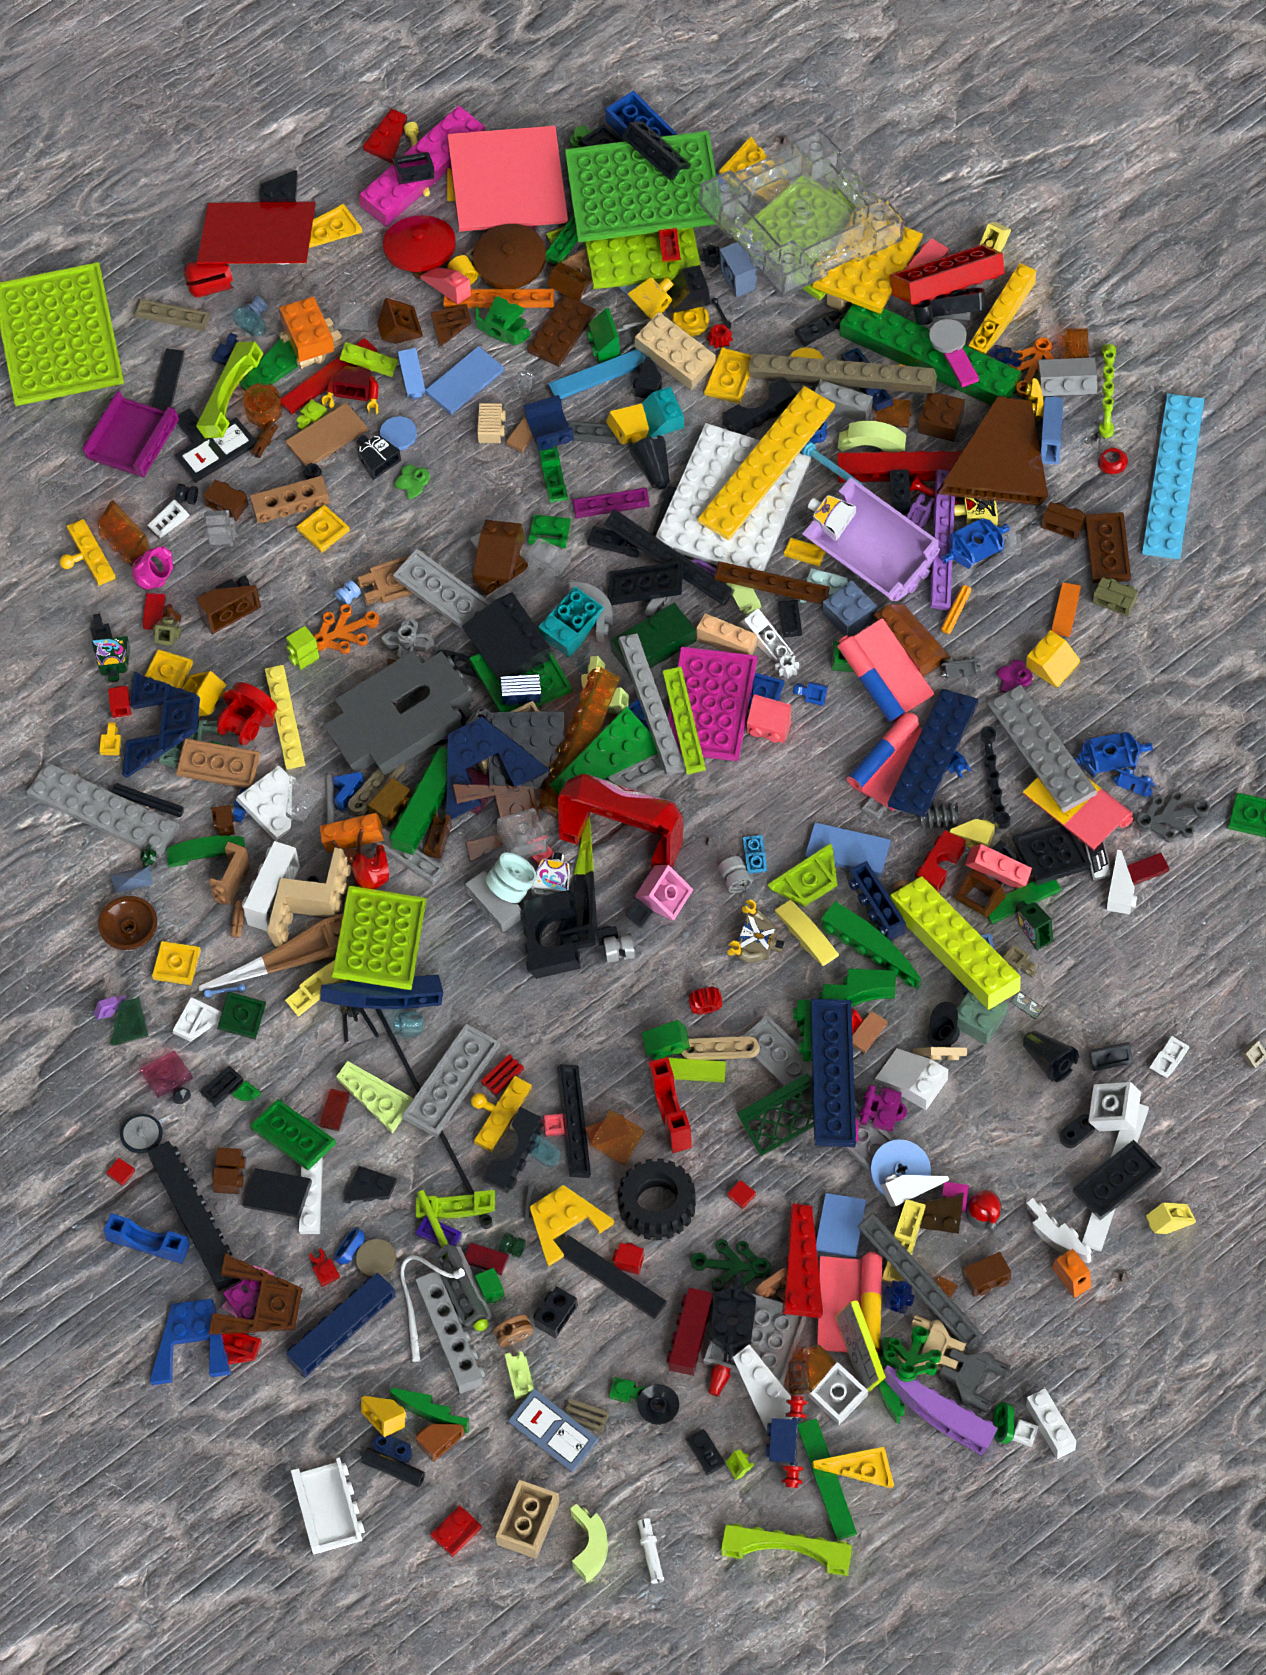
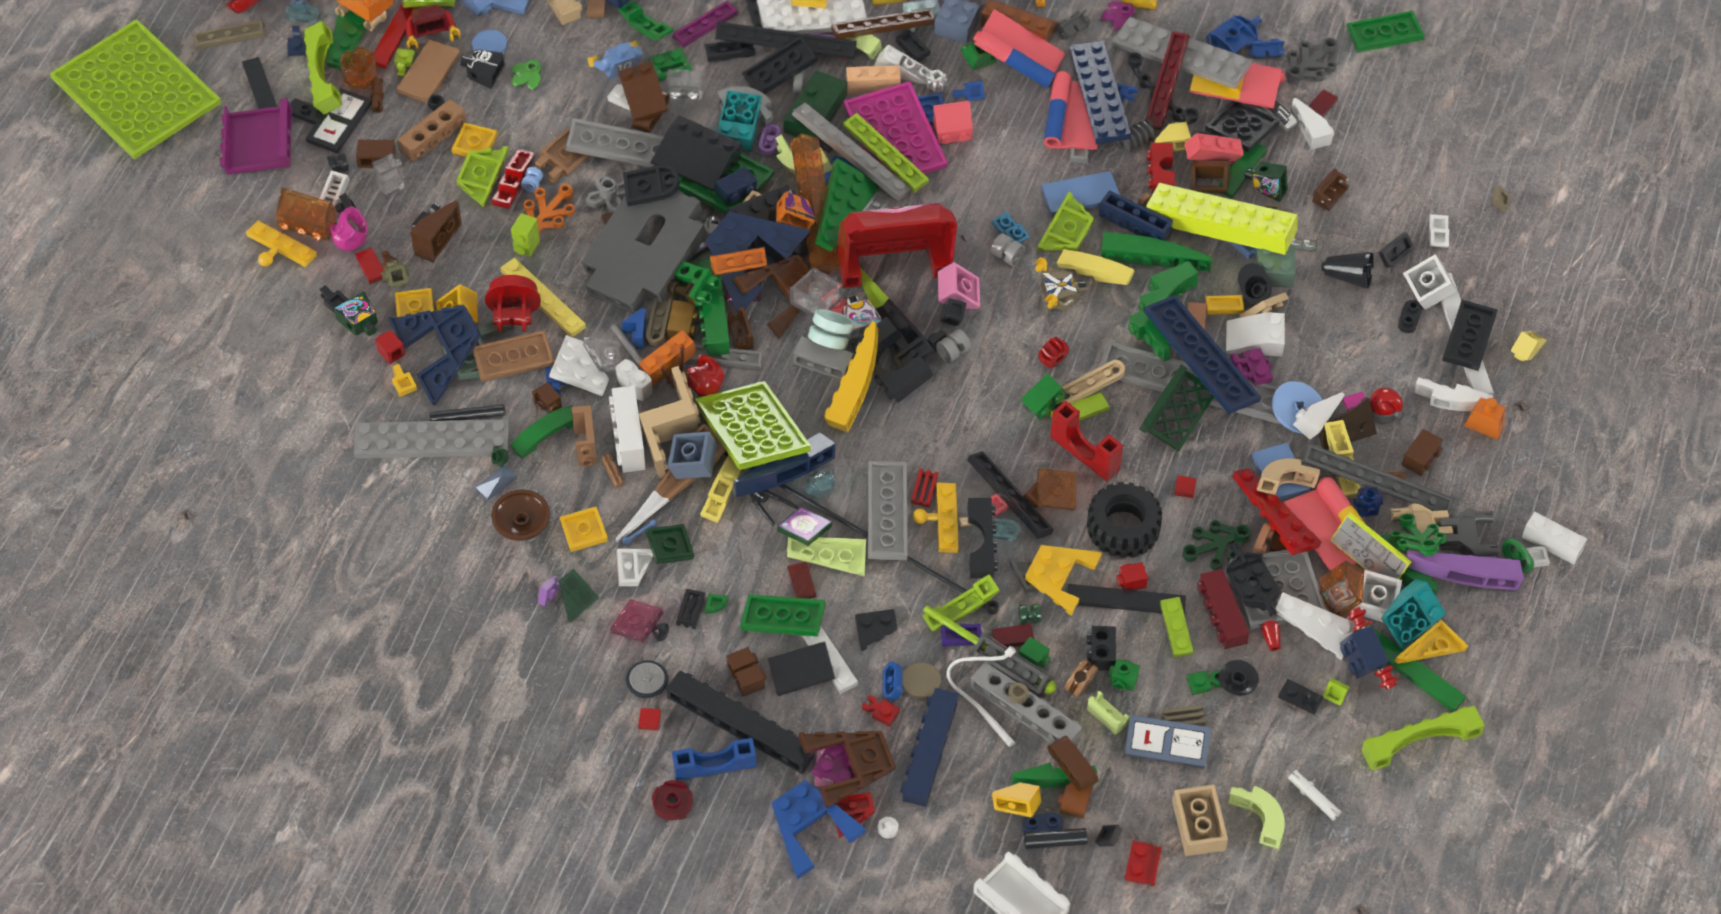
camera: 35 degrees left, 5 degrees down
(93, 1268) = (665, 792): none -> dark red plate
(168, 540) = (346, 203): none -> black tile
(257, 1379) = (888, 827): none -> white tile
(305, 941) = (692, 455): none -> sand blue brick
(306, 564) = (481, 172): none -> lime wing
(310, 839) = (629, 375): none -> white brick
(324, 589) = (511, 181): none -> red slope
(367, 1058) = (804, 526): none -> tile
(419, 775) = (697, 283): none -> green hips
(433, 652) = (650, 184): none -> black plate
(440, 1490) = (1108, 835): none -> black plate
(445, 1315) = (1018, 693): none -> dark tan tile
(446, 1407) = (1072, 763): none -> reddish brown beam
(467, 768) = (738, 261): none -> orange tile
(503, 505) = (617, 59): none -> medium blue torso
(503, 940) = (855, 383): none -> yellow slope
(547, 743) = (794, 211): none -> orange torso
(555, 1348) = (1124, 675): none -> green brick
(588, 651) = (767, 142): none -> medium lavender plate
(636, 1326) = (1176, 627): none -> lime plate
(833, 1227) = (1286, 471): none -> tan arch
(855, 1427) = (1412, 612): none -> teal slope
(906, 1030) = (1224, 304): none -> yellow tile
(1005, 771) = (1167, 79): none -> dark red tile
(1091, 962) = (1330, 190): none -> reddish brown hinge

